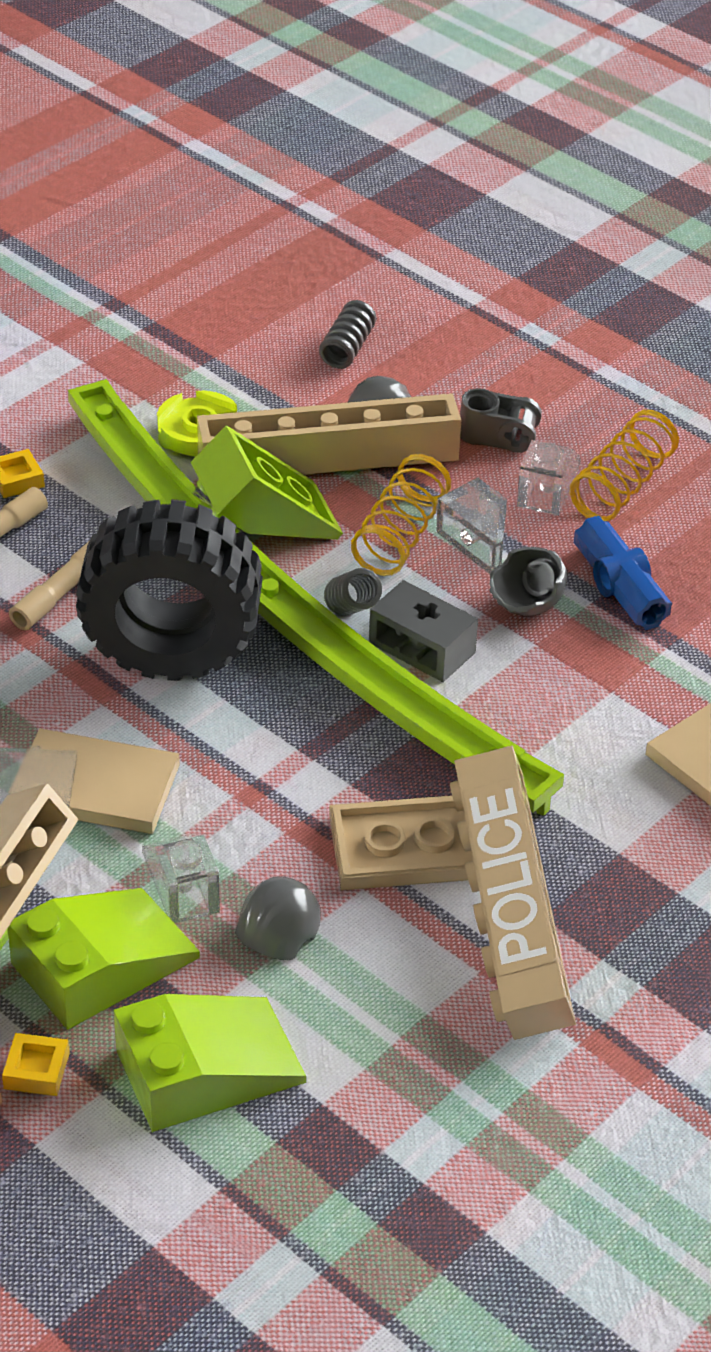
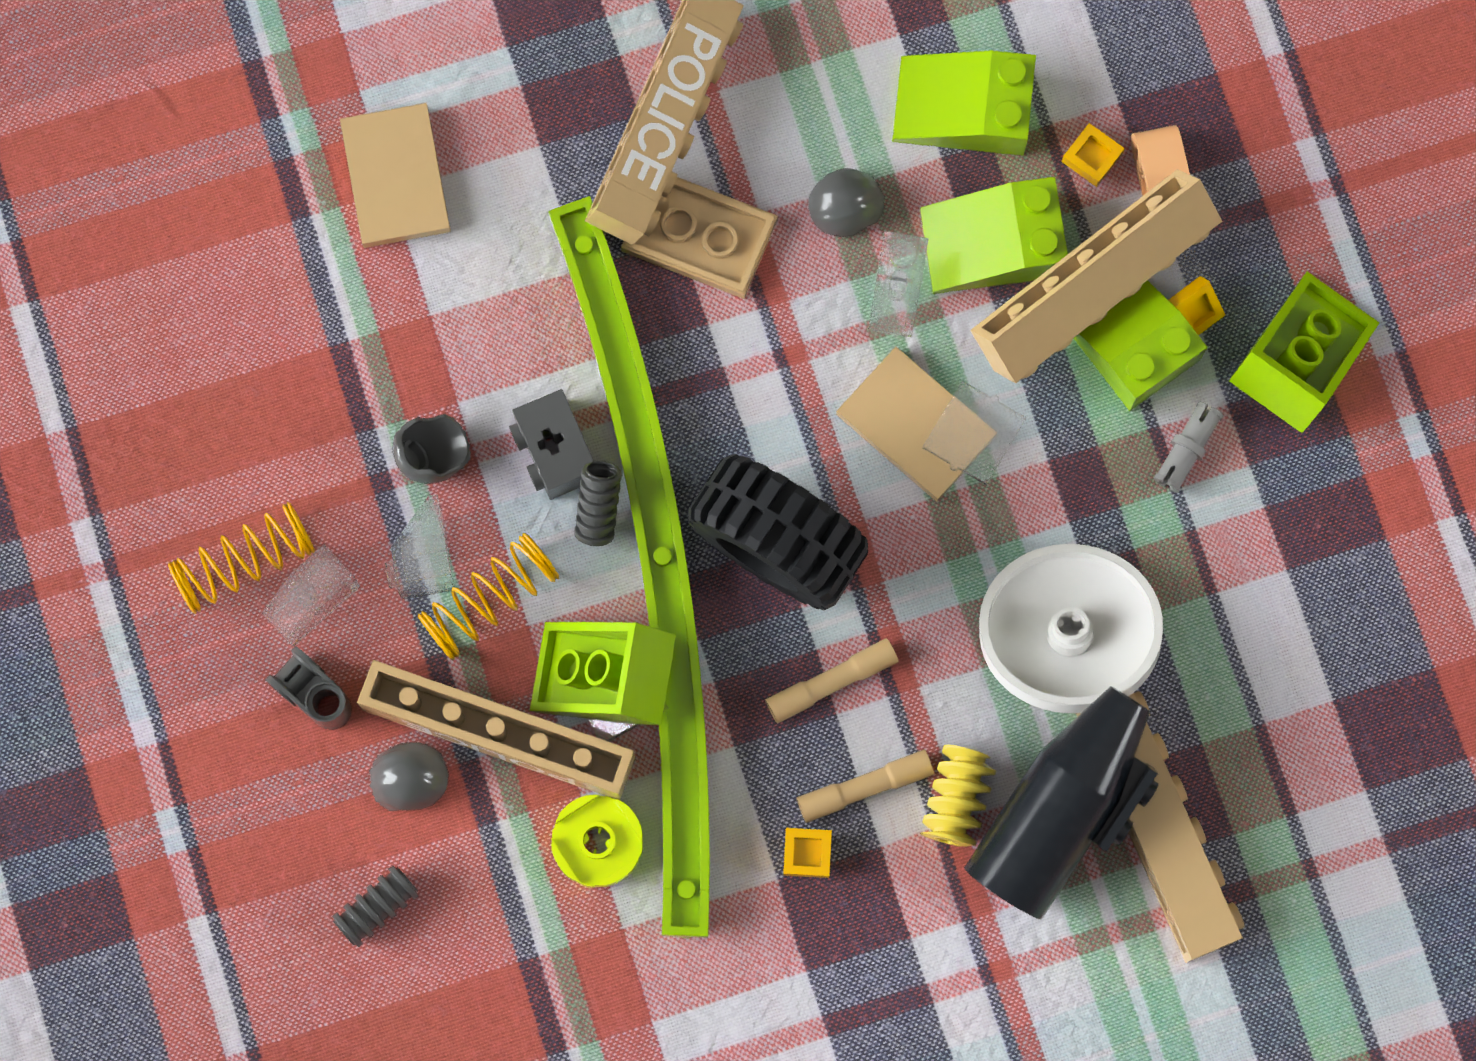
camera: 150 degrees left, 35 degrees up
(622, 573) = (335, 430): blue piece -> none

